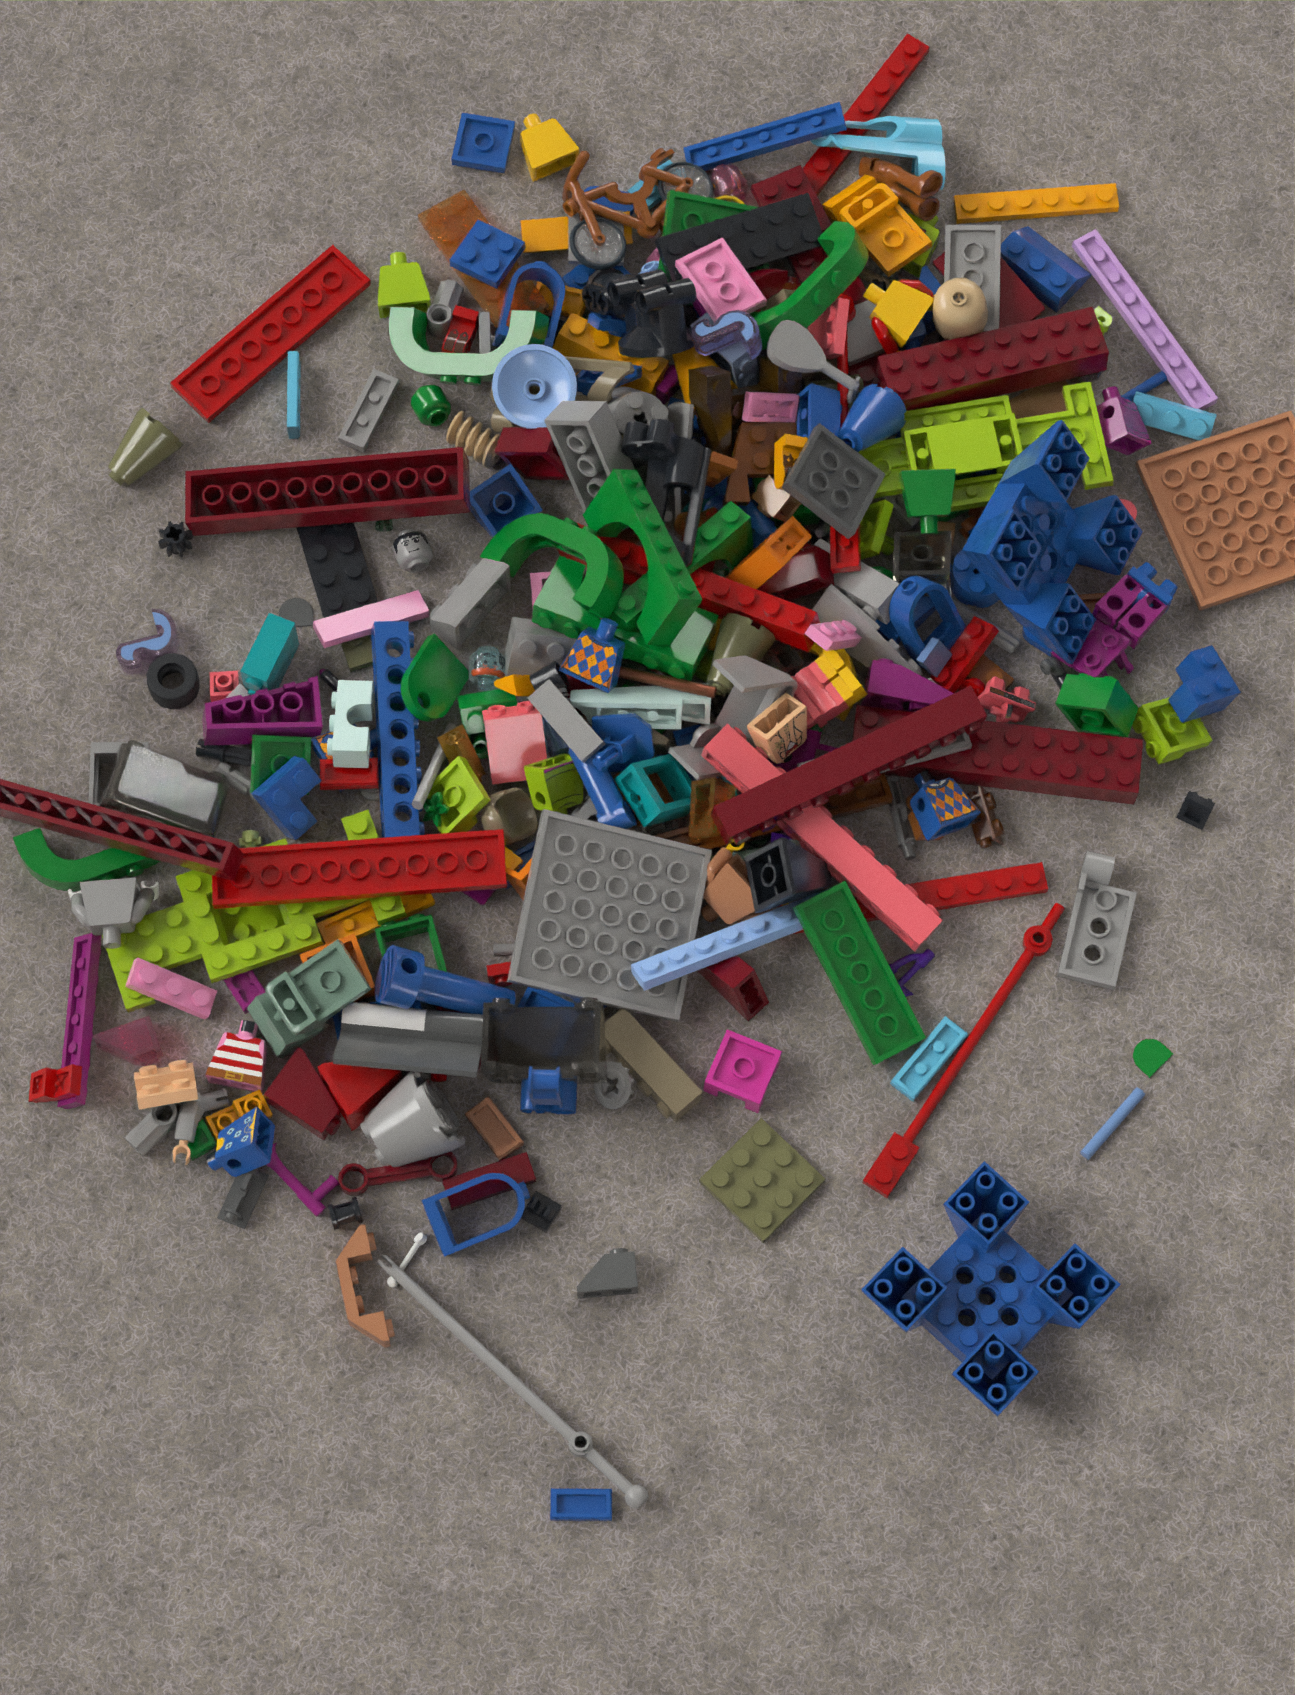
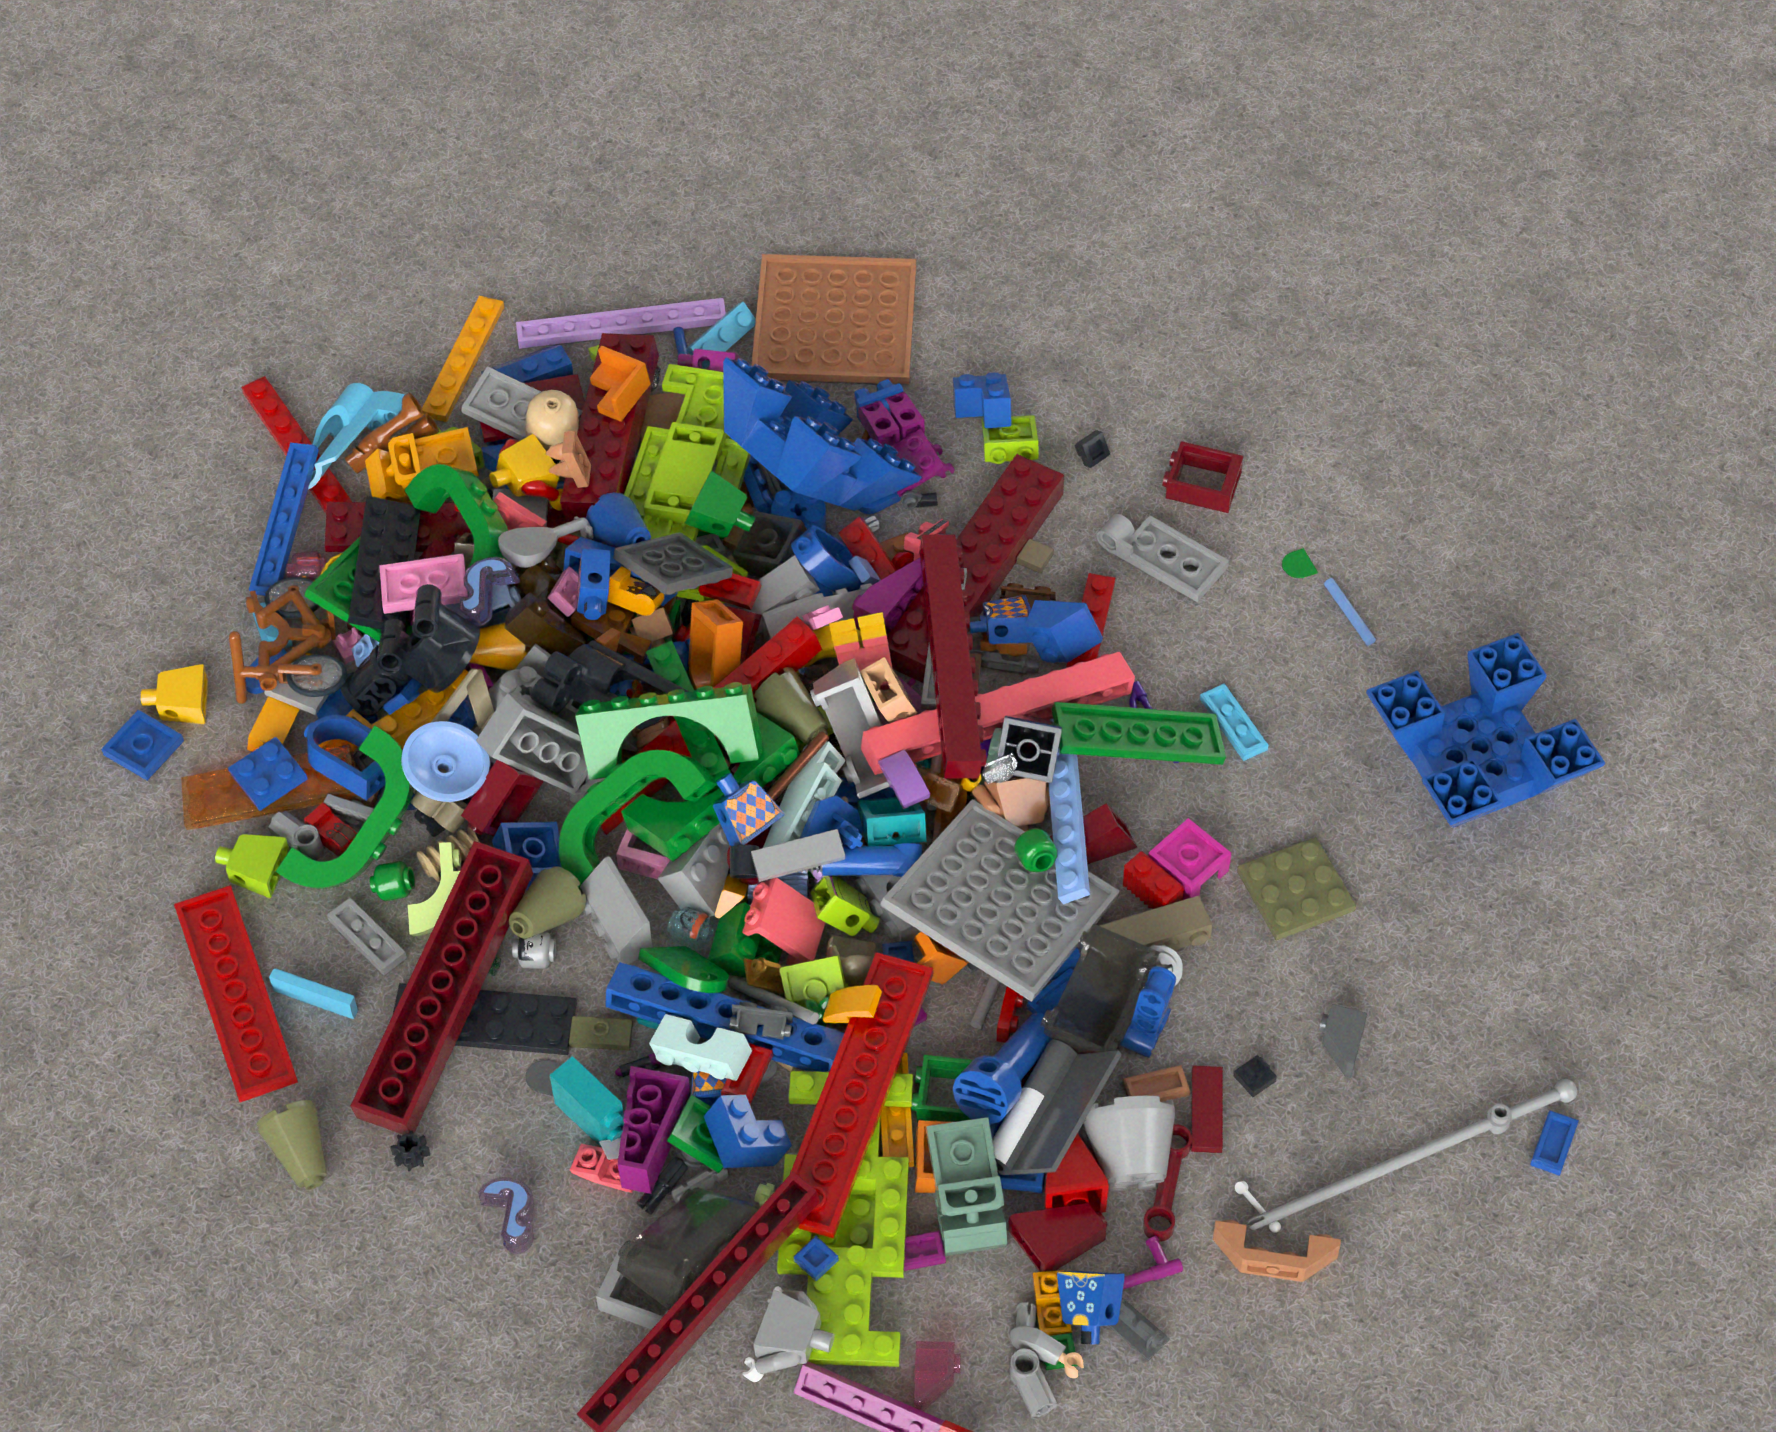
camera: 65 degrees left, 15 degrees down
(68, 874) = (706, 1390): green arch -> none
(165, 1084) = (997, 1351): light nougat plate -> none
(171, 988) = (895, 1313): bright pink plate -> none
(177, 697) = (565, 1222): black tyre -> none
(190, 902) = (816, 1258): none -> blue tile
(239, 1060) = (995, 1279): torso -> none
(345, 1213) = (1191, 1241): black bush -> none
(359, 621) = (589, 1006): bright pink tile -> none
(391, 750) = (750, 1017): none -> dark grey hinge
(404, 441) = (425, 914): none -> yellowish green arch
(439, 830) = (852, 1002): none -> light orange slope
(441, 1226) = (1233, 1159): blue window -> none
(445, 537) = (548, 903): none -> olive cone
(672, 926) = (1036, 850): none -> green head
(692, 778) = (904, 779): none -> medium lavender slope
(702, 1047) = (1151, 882): none -> red brick
(739, 858) = (1000, 769): none -> clear plate
(771, 422) = (592, 595): none -> blue torso
(900, 1150) = (1310, 774): red bar -> none
(910, 344) = (574, 460): none -> nougat tile
(940, 856) = (1061, 630): none -> blue slope
(1028, 353) = (623, 379): none -> orange panel
(1042, 806) = (1035, 556): none -> dark tan tile
(1097, 705) = (970, 471): green brick -> none
(1214, 954) = (1207, 459): none -> dark red window

